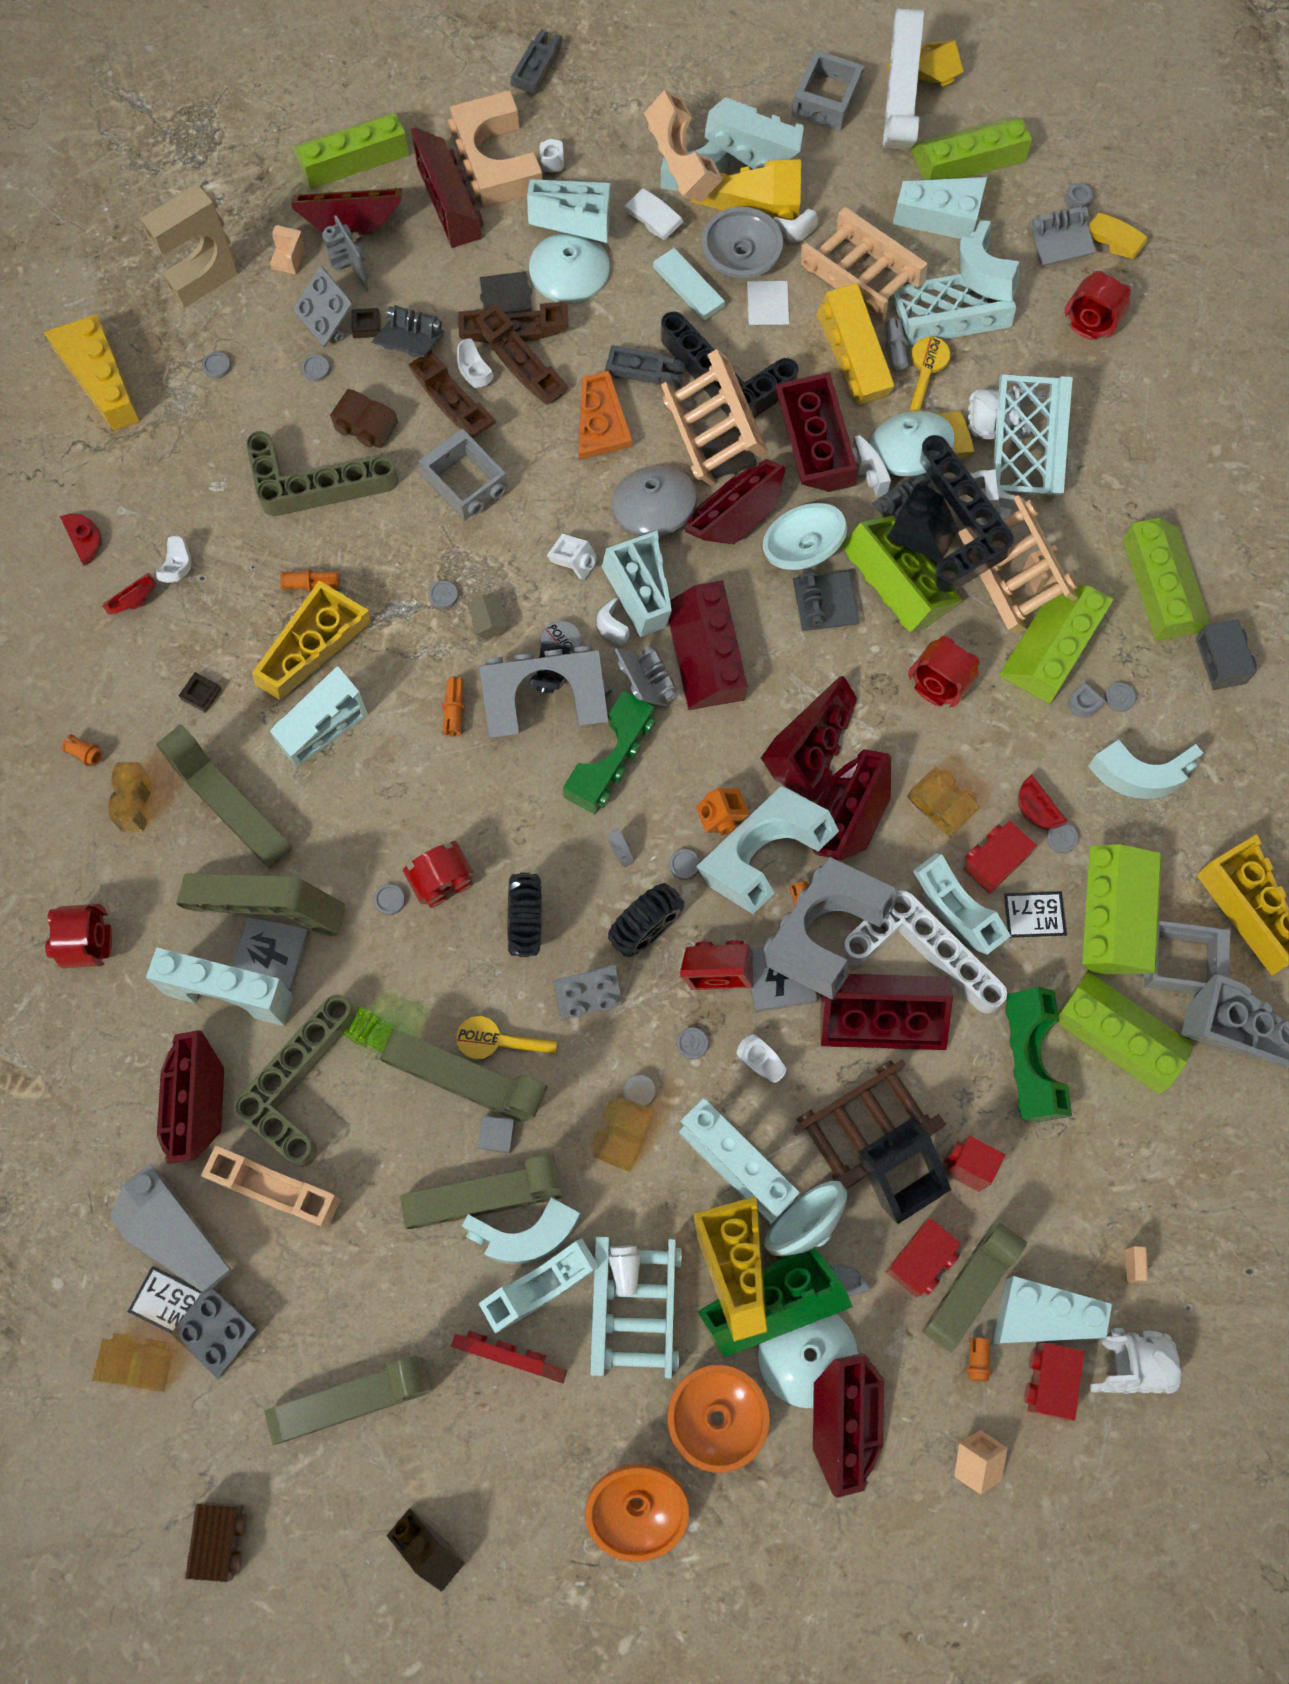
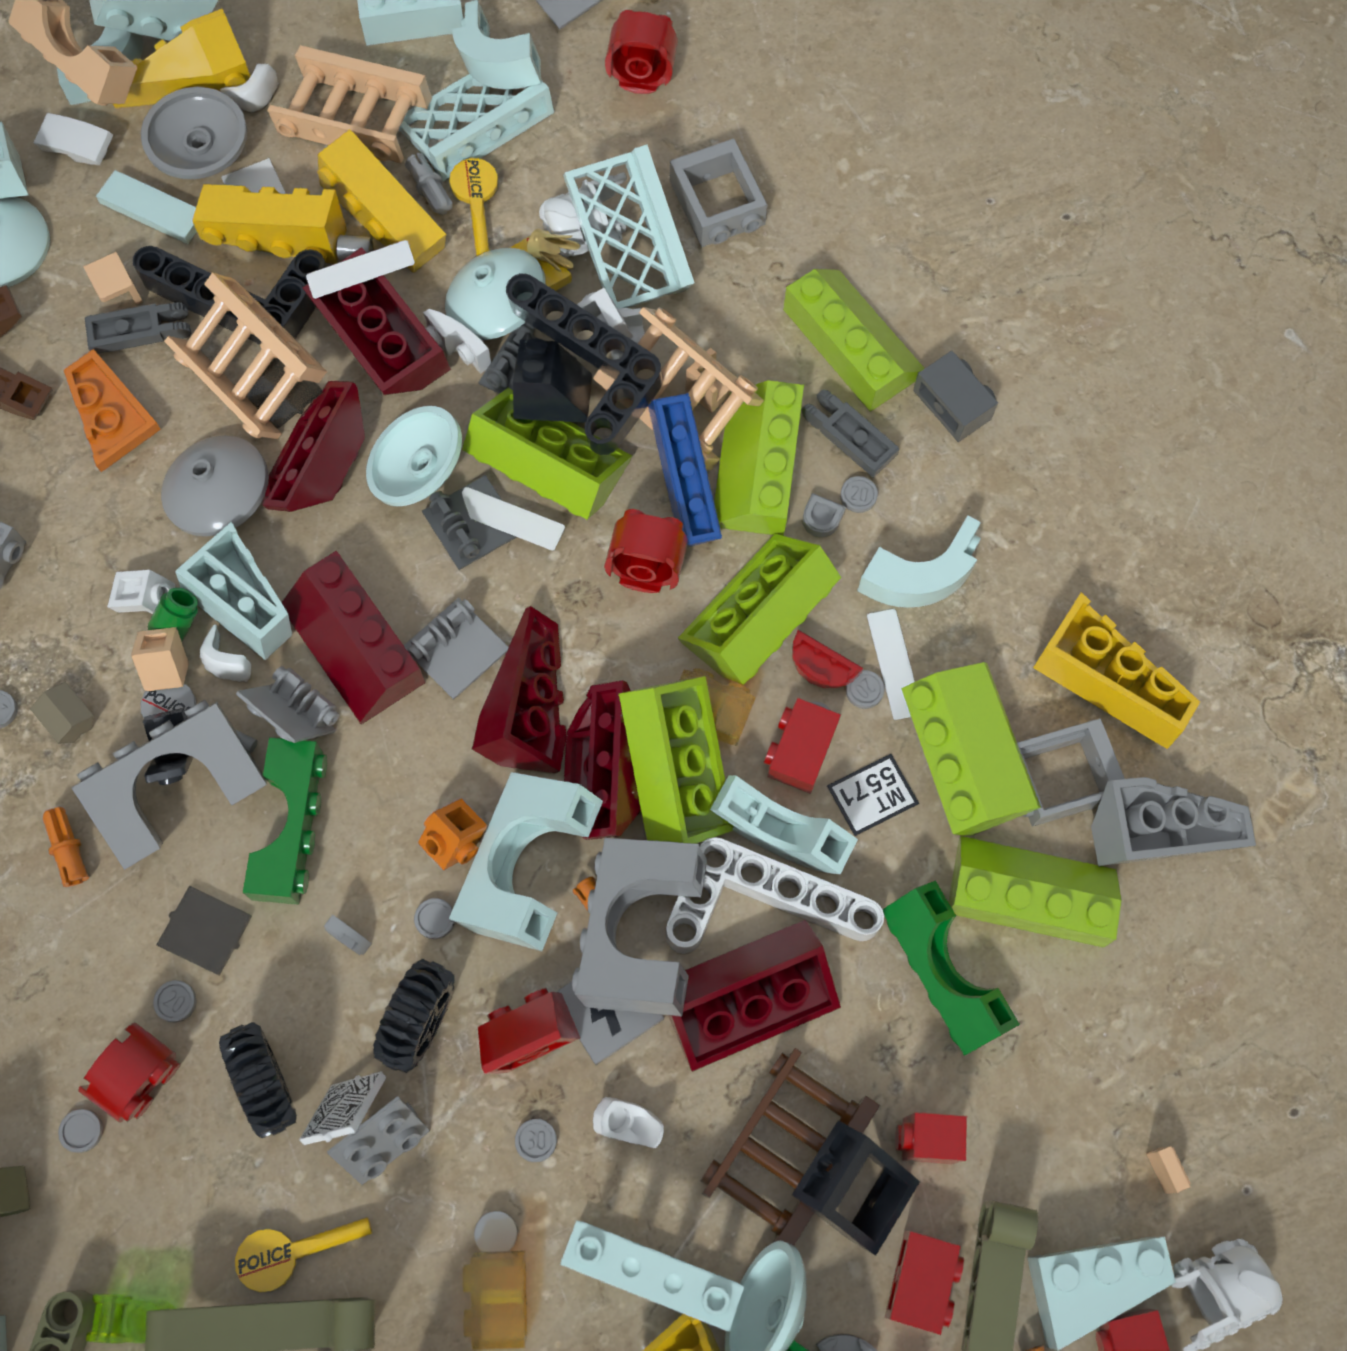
camera: 25 degrees left, 0 degrees up
(485, 842) = (174, 1001): none -> light grey piece
(524, 803) = (204, 930): none -> clear smoke piece
(569, 605) = (160, 659): none -> light nougat panel
(572, 959) = (343, 1108): none -> white piece
(590, 580) = (175, 609): none -> green brick
(641, 325) = (111, 278): none -> light nougat panel
(771, 327) = (270, 220): none -> yellow wedge
(778, 684) = (456, 648): none -> light grey hinge
(821, 366) = (349, 244): none -> light grey hinge
(822, 387) = (360, 269): none -> white sticker
(856, 610) = (512, 519): none -> white sticker
(903, 824) = (675, 760): none -> lime slope
(965, 424) = (547, 247): none -> pearl gold piece
(998, 624) = (684, 468): none -> blue slope
(1011, 747) = (761, 607): none -> lime slope
(1092, 824) = (892, 659): none -> white sticker
(1110, 410) = (707, 165): none -> light grey window
(1134, 650) = (851, 433): none -> dark grey hinge

